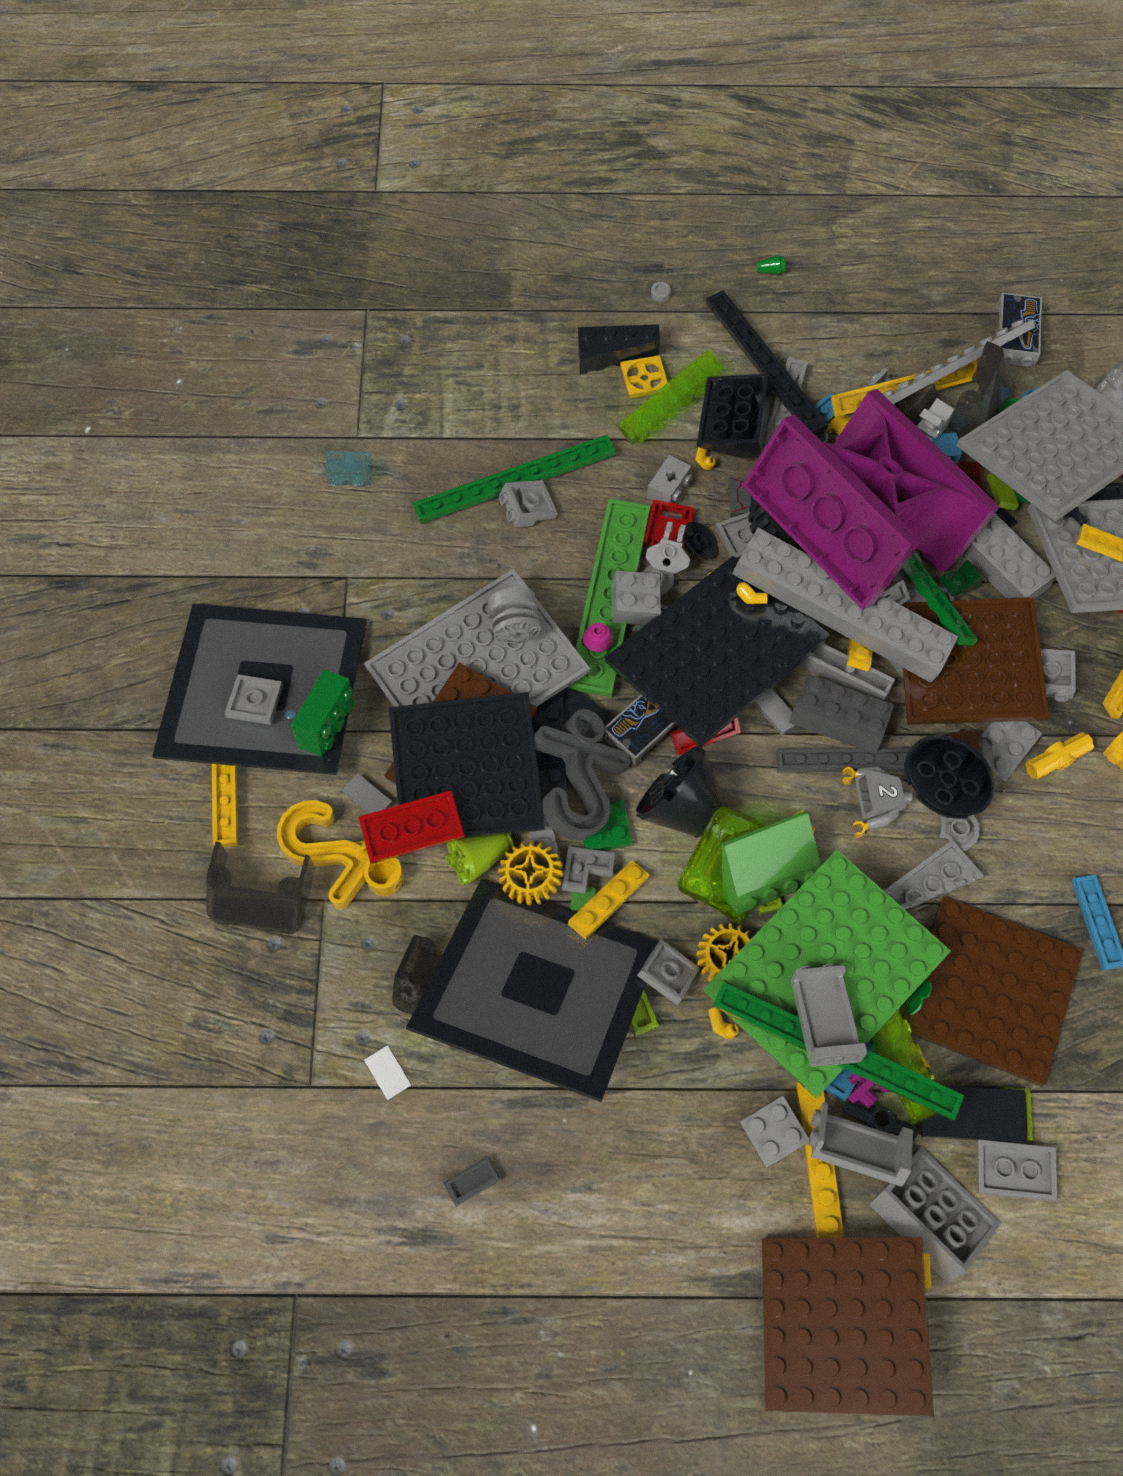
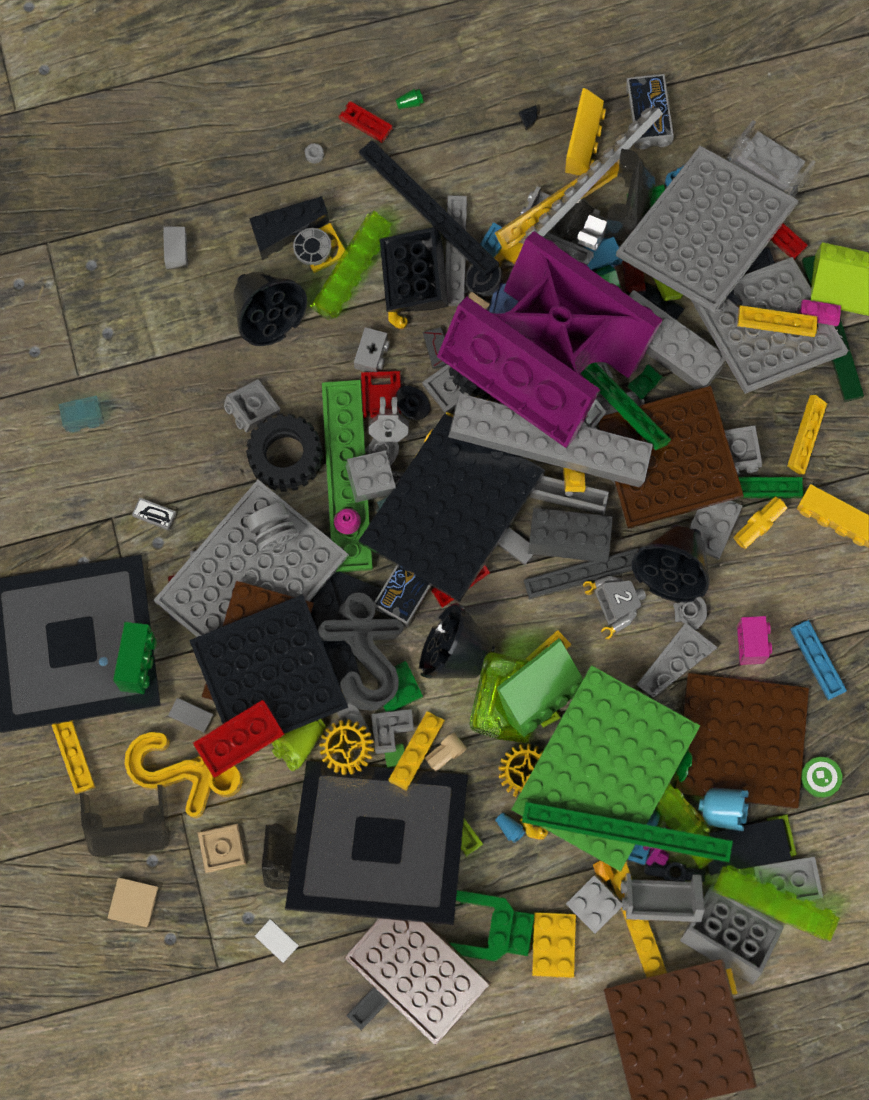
camera: 10 degrees left, 10 degrees up
(237, 983) = (133, 902): none -> tan tile
(254, 699) = (69, 658): light grey plate -> none
(356, 950) = (221, 848): none -> tan tile
(393, 583) = (154, 514): none -> tile
(492, 485) = (240, 377): green plate -> none
(494, 339) = (175, 247): none -> light grey piece
(543, 1155) = (418, 974): none -> plate
(553, 530) = (284, 428): none -> black tyre
(574, 409) = (267, 307): none -> black cone
(635, 370) = (312, 246): none -> tile
(647, 907) = (449, 749): none -> tan piece
(662, 1138) = (508, 932): none -> green plate
(668, 972) = (480, 799): light grey tile -> none
(695, 1015) = (511, 828): none -> dark azure cone
(713, 1168) = (554, 945): none -> yellow plate
(721, 275) = (366, 122): none -> red plate
(748, 595) = (467, 452): yellow arm -> none
(795, 1094) = (603, 871): none -> light orange tile
(826, 1016) = (612, 808): light grey panel -> none
(889, 308) = (528, 116): none -> black tile
(946, 330) = (584, 133): none -> yellow slope
(958, 1058) = (725, 808): none -> medium azure cylinder
(999, 1191) = (776, 904): none -> clear neon green brick
(1029, 877) = (753, 640): none -> dark pink brick
(1079, 721) = (772, 486): none -> green plate
(1079, 1056) = (821, 777): none -> bright green tile

